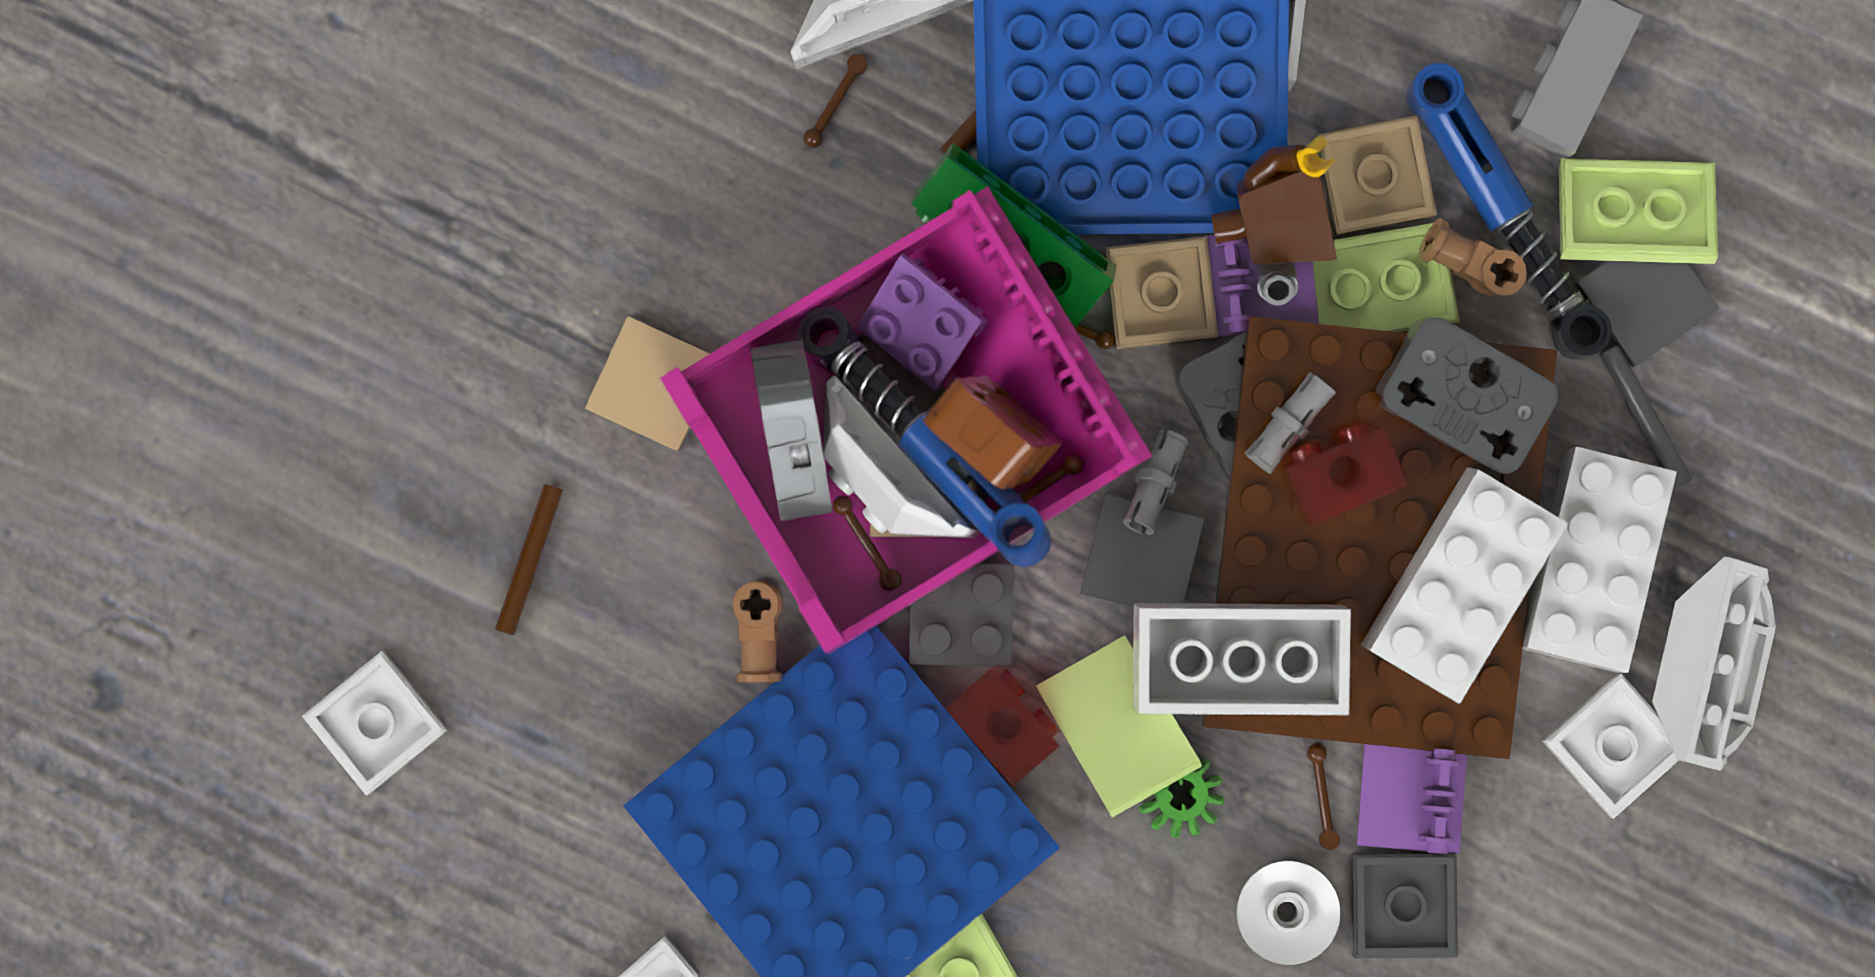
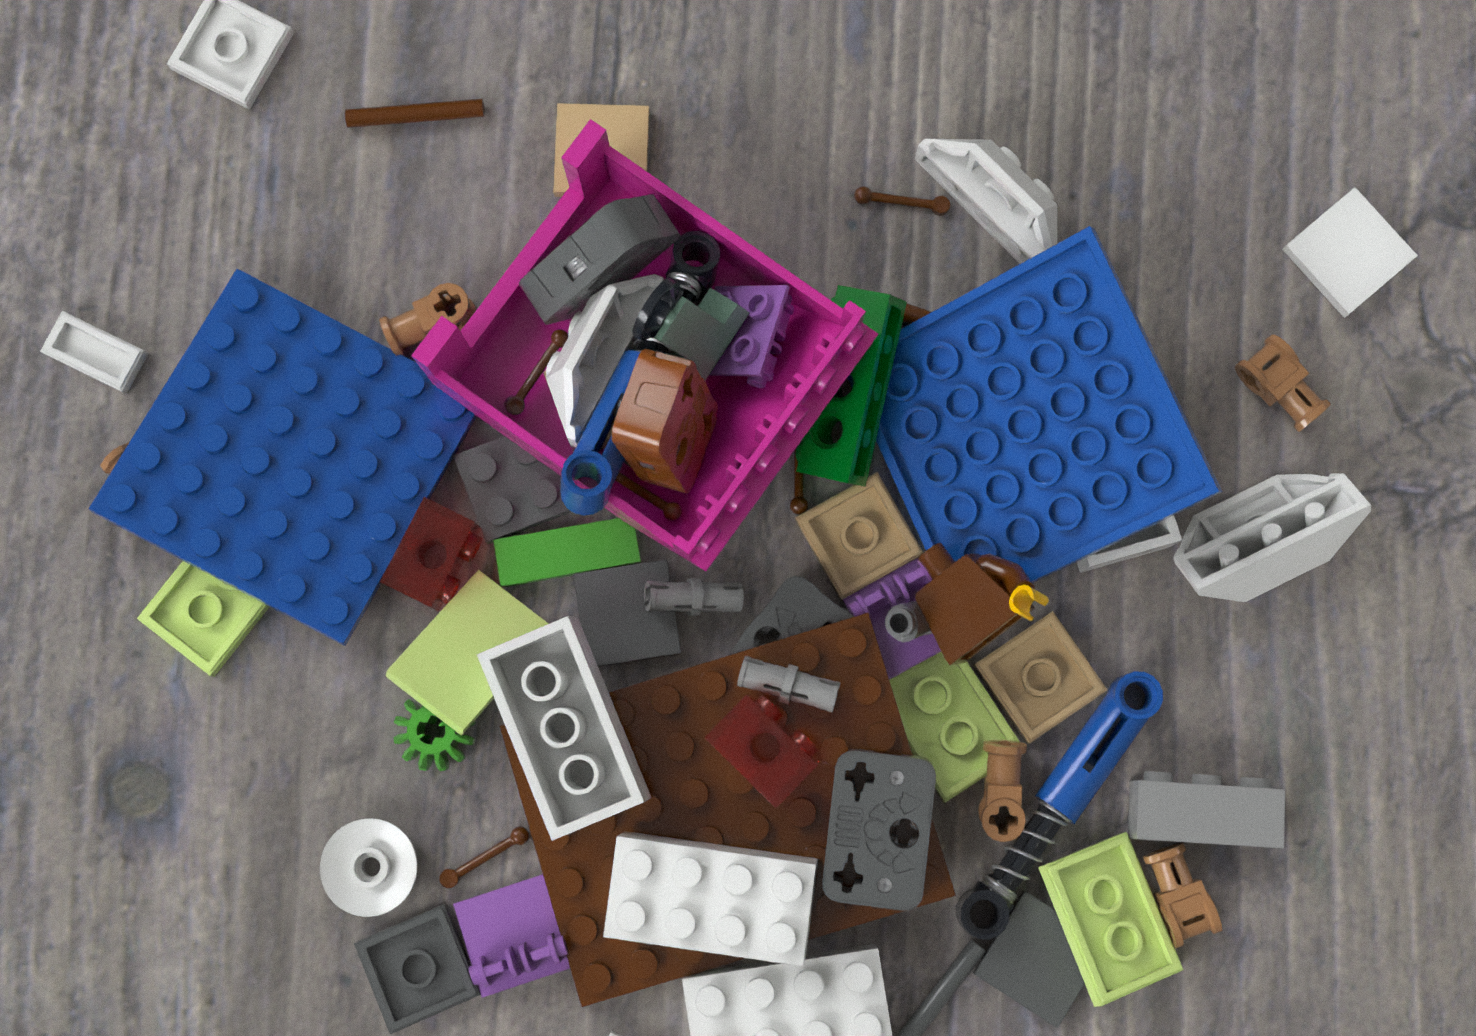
camera: 70 degrees right, 5 degrees down
(909, 363) = (690, 330): none -> sand green piece
(1054, 593) = (566, 552): none -> bright green tile
(1648, 133) = (1181, 896): none -> medium nougat connector

